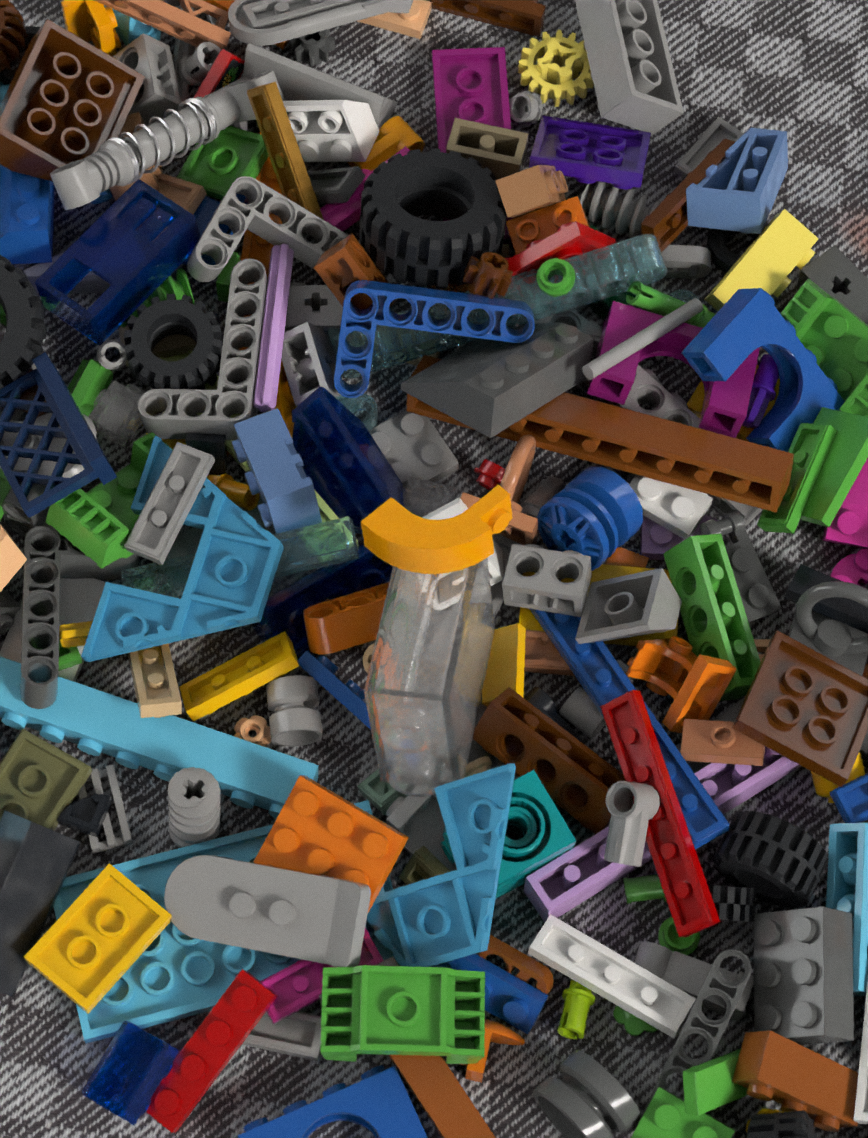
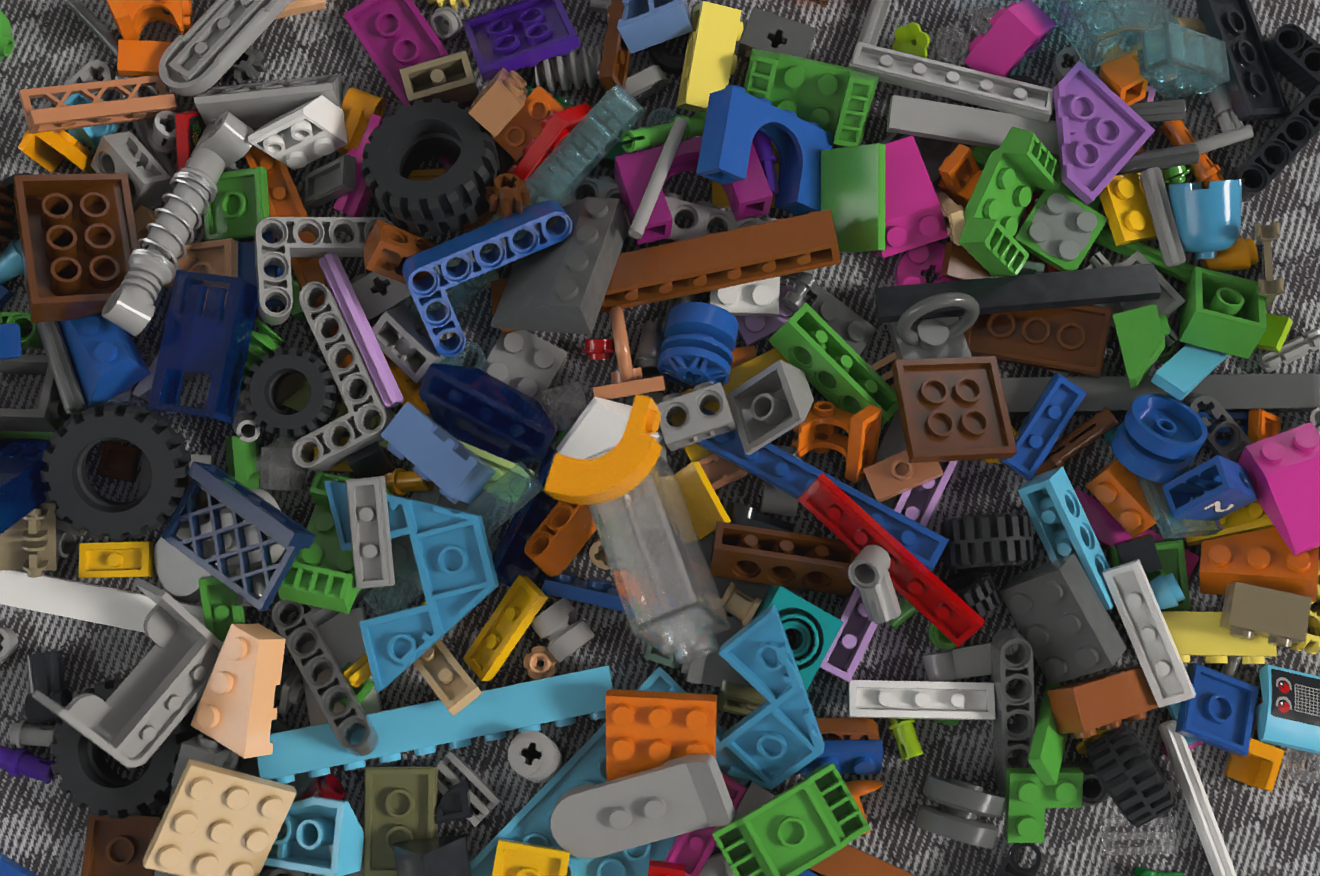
camera: 25 degrees left, 15 degrees up
(282, 146) = (278, 174): pearl gold tile -> none
(555, 267) = (552, 160): bright green plate -> none
(810, 451) = (833, 193): bright green tile -> none

